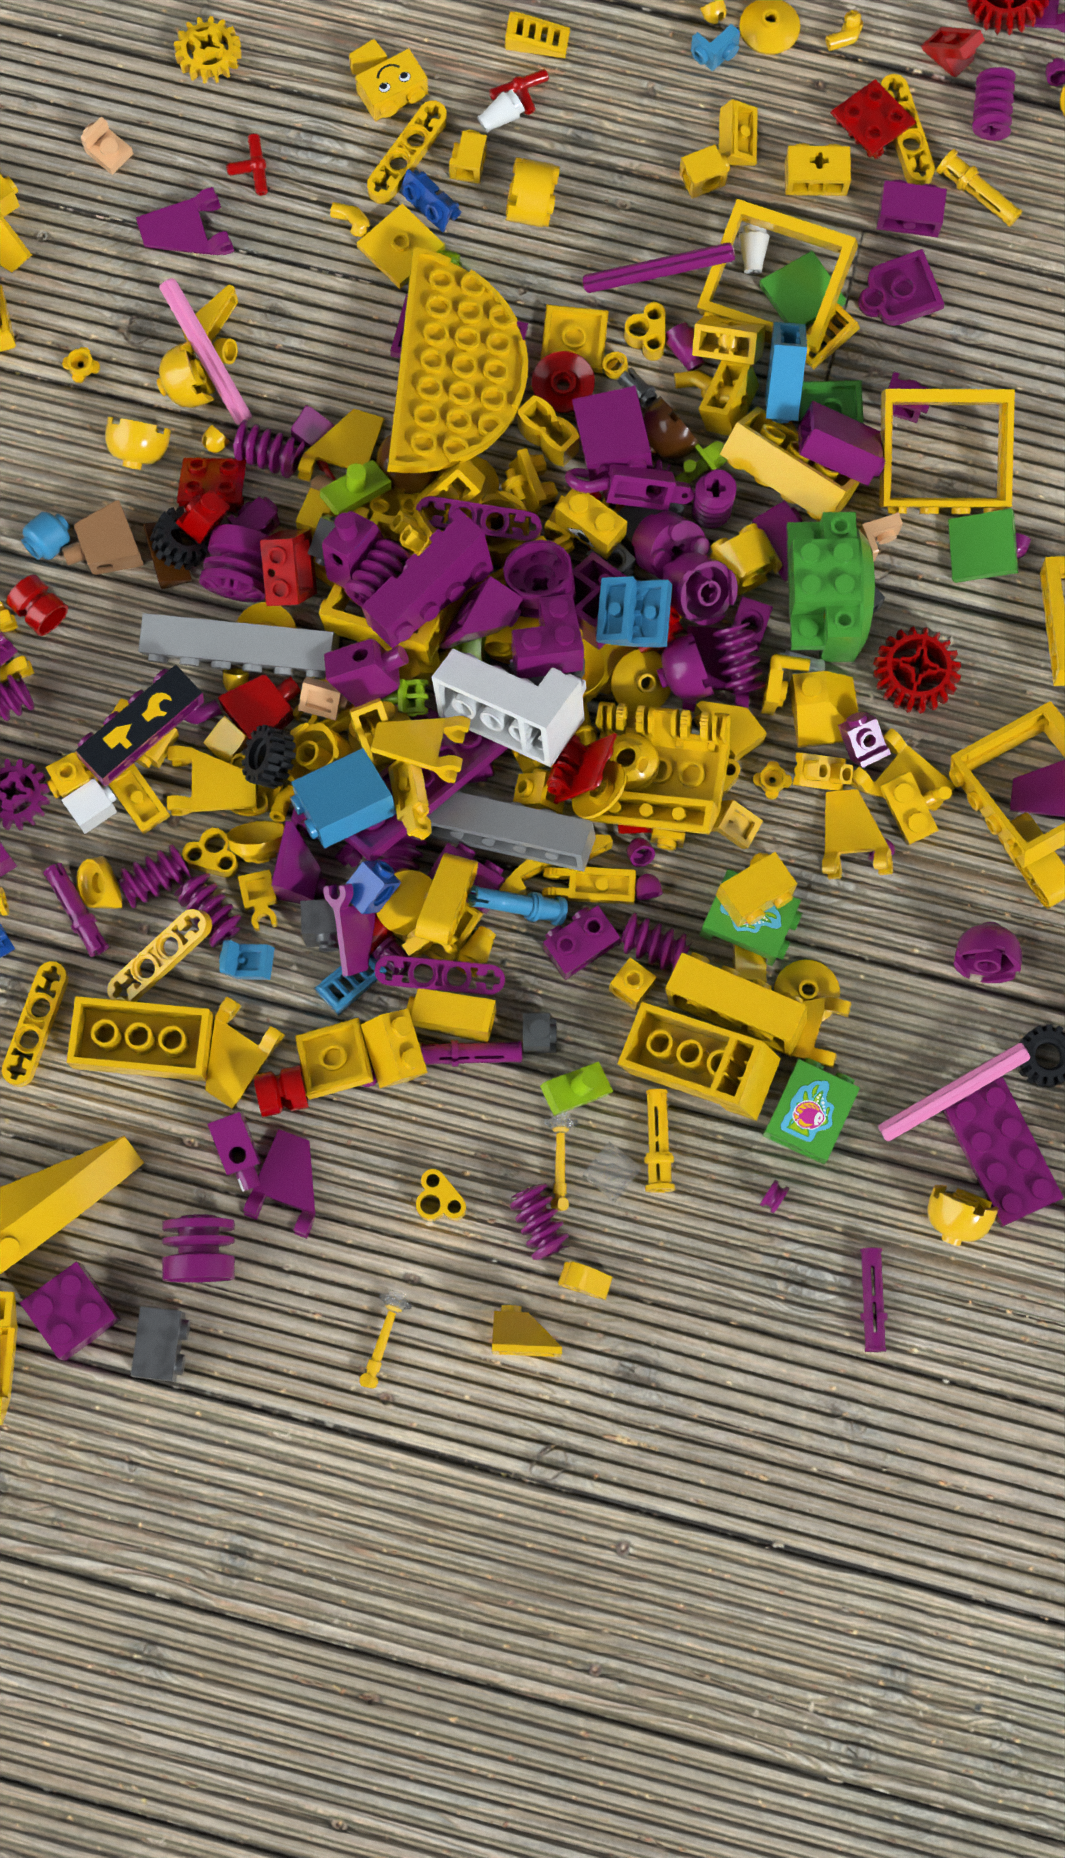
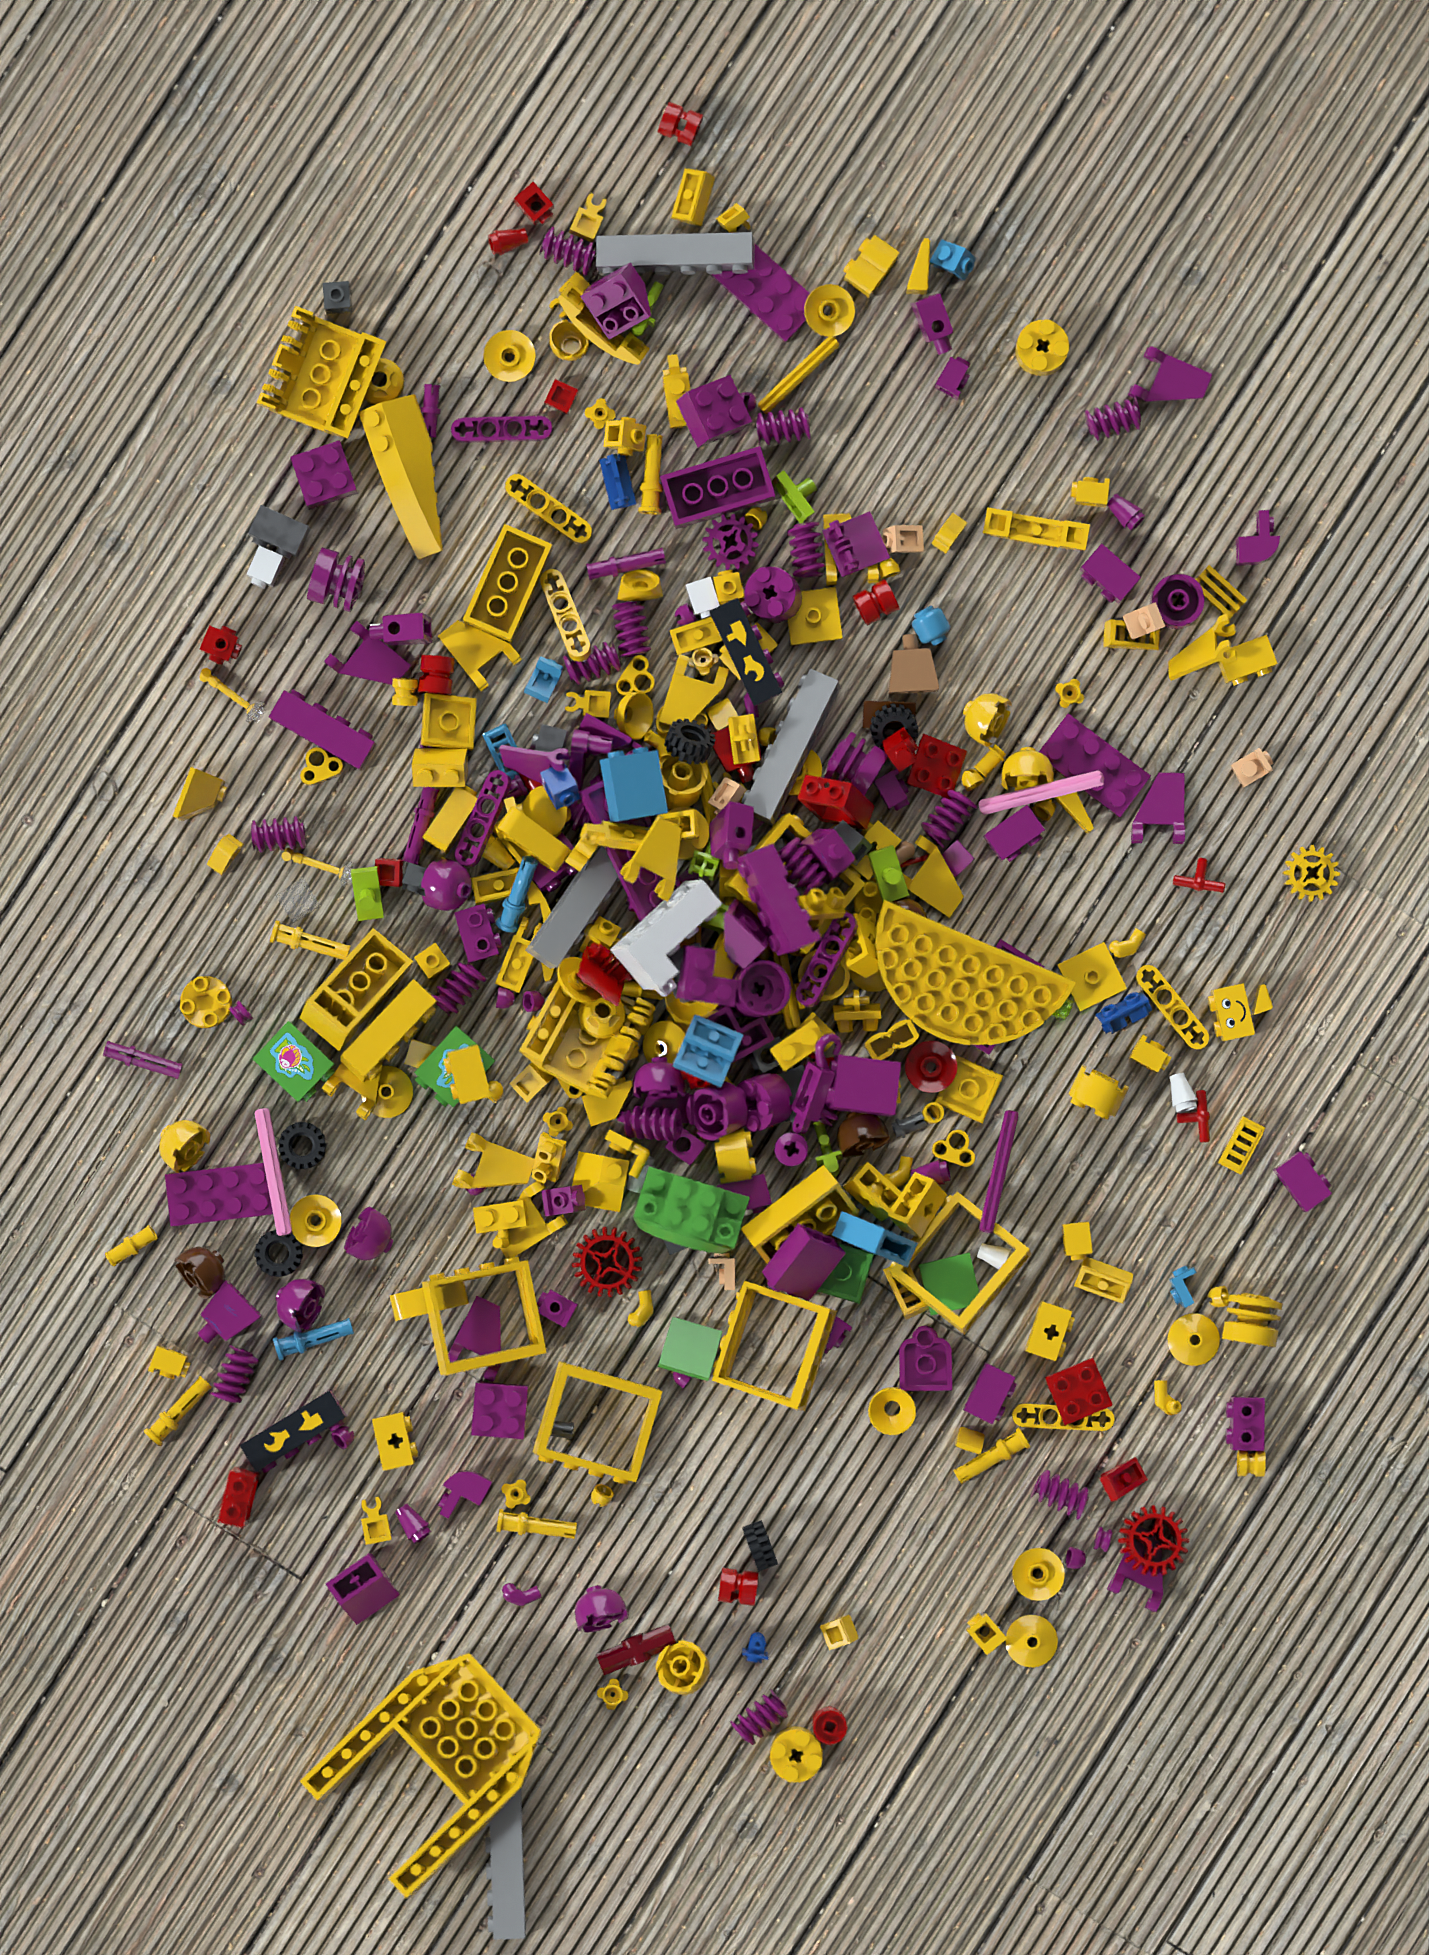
camera: 105 degrees right, 10 degrees up
(49, 707) = (776, 608): none -> magenta brick
(75, 675) = (817, 618): none -> yellow plate
(117, 819) = (686, 614): none -> magenta hinge
(148, 323) = (1078, 751): none -> magenta plate
(160, 776) = (698, 655): none -> yellow plate
(185, 425) = (990, 760): none -> yellow pin
(210, 1348) = (265, 567): none -> white brick
(246, 693) = (743, 739): none -> yellow hips
(263, 370) = (1015, 833): none -> magenta brick
(307, 877) = (581, 743): none -> magenta beam
(309, 1124) = (405, 691): none -> yellow wheel
(331, 1382) = (214, 638): none -> red brick
(392, 1209) = (323, 730): none -> magenta brick
(443, 839) = (580, 855): none -> yellow piece
(515, 938) = (493, 886): none -> yellow slope
(535, 991) = (446, 885): none -> magenta cylinder
(540, 1069) = (390, 872): none -> red plate
(775, 1245) = (205, 1002): none -> yellow dish
(926, 1060) = (287, 1138): none -> black tyre
(958, 612) = (644, 1311): none -> yellow arm
(971, 217) = (970, 1440): none -> yellow slope
(977, 296) = (888, 1423): none -> yellow piece
(991, 697) = (566, 1307): none -> magenta brick
(994, 1007) = (301, 1220): none -> yellow dish
(1025, 48) = (1102, 1539): none -> magenta bush

